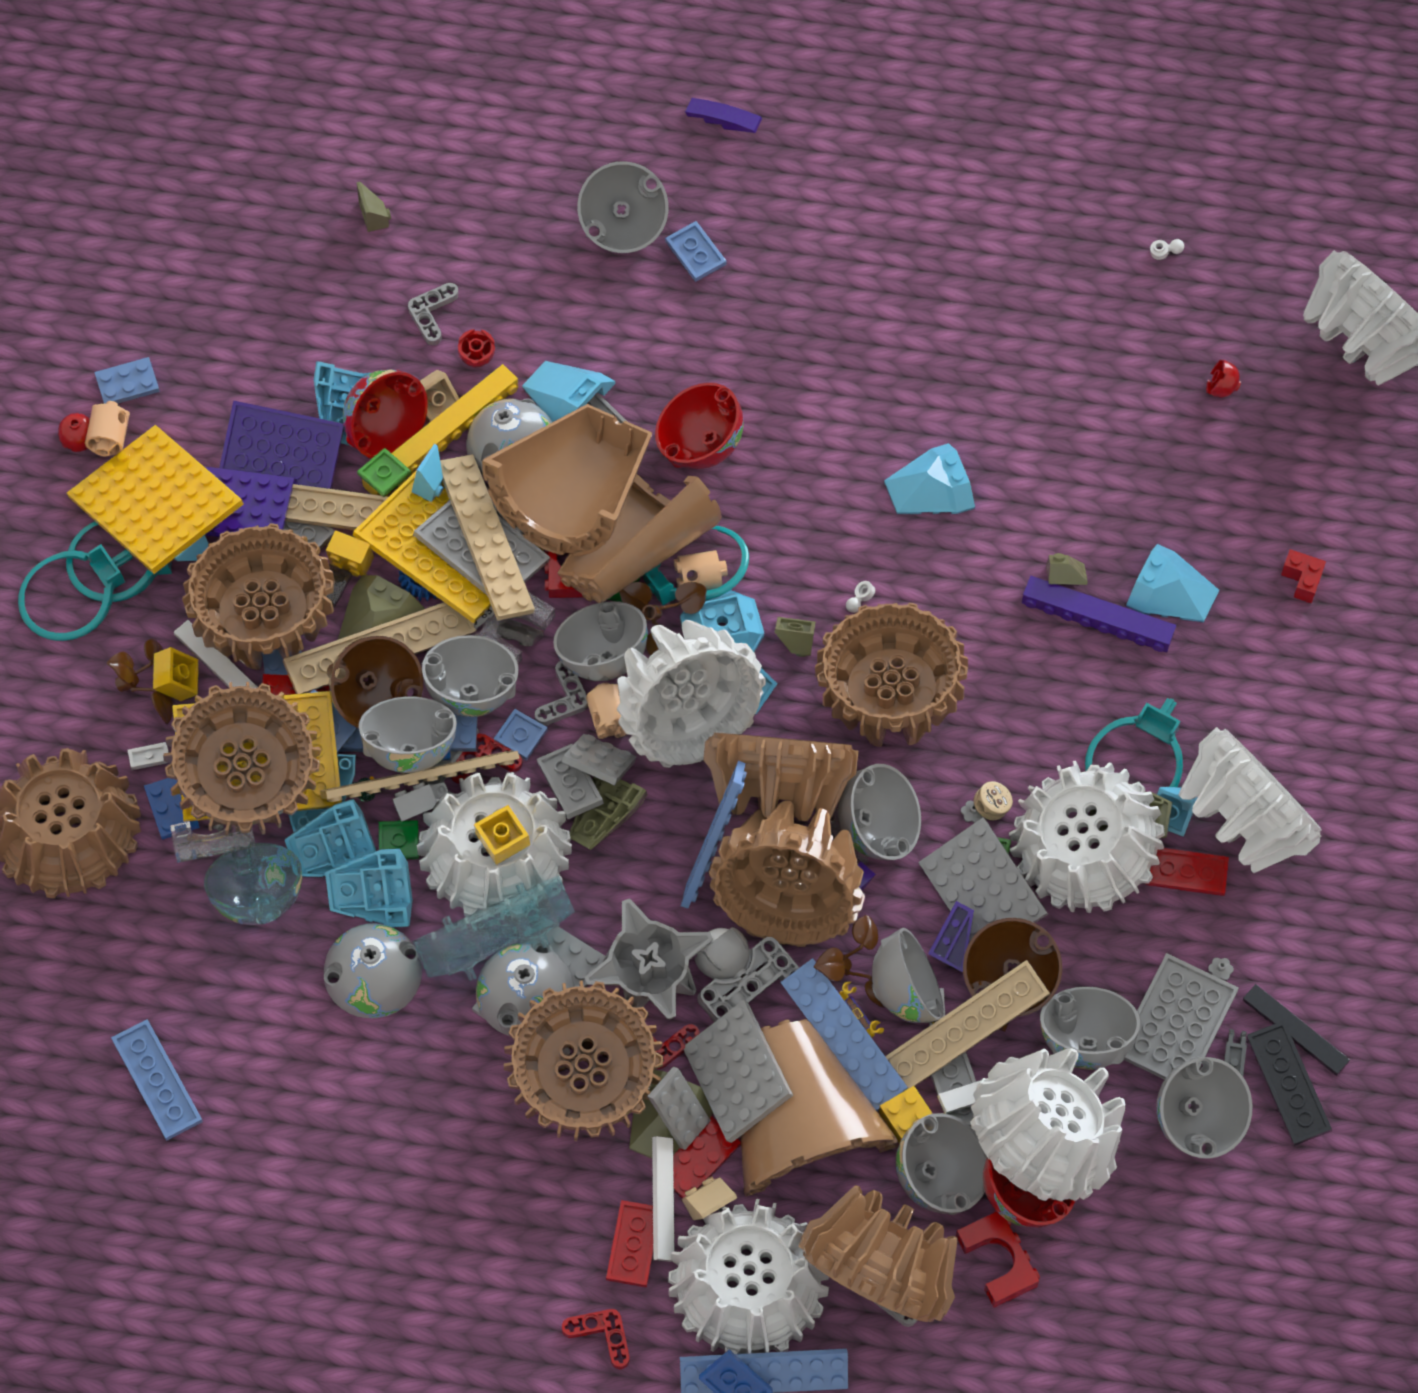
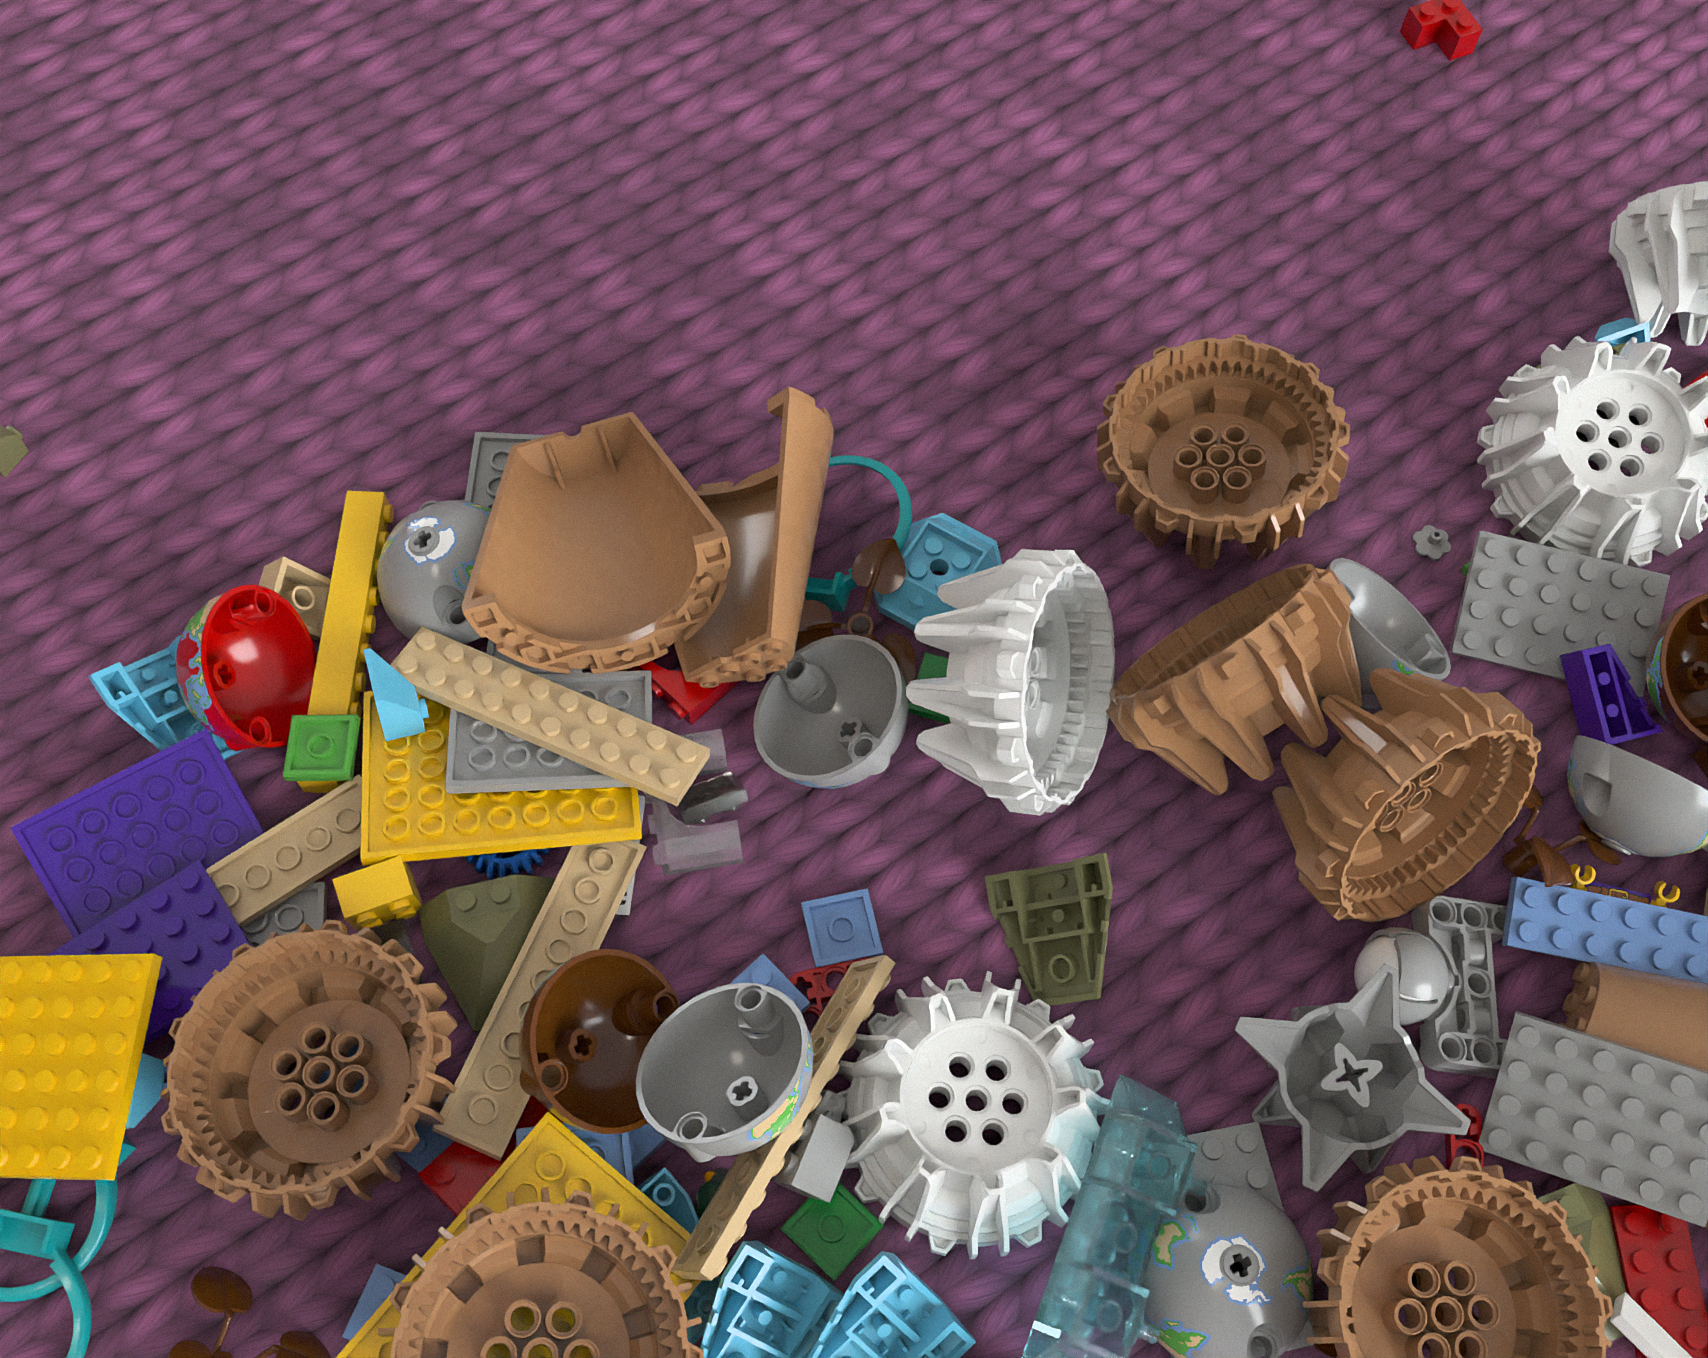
camera: 45 degrees left, 0 degrees up
(175, 674) = (283, 1296): yellow brick -> none
(212, 658) = (346, 1217): white tile -> none
(424, 311) = (175, 504): light grey beam -> none
(470, 675) = (713, 910): light grey piece -> none
(476, 348) = (293, 498): red cylinder -> none
(502, 834) = (1011, 1093): yellow brick -> none
(564, 388) = (456, 459): medium azure wedge -> none
(568, 701) = (854, 830): light grey beam -> none
(570, 786) = (973, 932): light grey plate -> none
(599, 759) = (981, 870): light grey plate -> none
(603, 708) = (923, 795): light nougat cylinder -> none
(622, 186) = (293, 181): light grey piece -> none
(679, 1108) = (1611, 1245): light grey plate -> none
(695, 251) = (452, 194): medium blue plate -> none
(700, 426) = (676, 373): red piece -> none
(706, 568) = (846, 530): light nougat cylinder -> none
(714, 834) = (1264, 826): medium blue plate -> none
(725, 115) = (341, 31): dark purple slope -> none
(796, 635) = (1033, 510): olive slope -> none
(864, 591) = (1048, 427): white plate -> none
(932, 484) = (984, 231): medium azure wedge -> none
(993, 800) = (1448, 508): tan head -> none
(1065, 570) = (1227, 204): olive slope -> none
(1098, 614) = (1304, 223): dark purple brick -> none
(1154, 722) = (1496, 282): teal brick -> none
(1172, 588) = (1338, 142): medium azure wedge -> none

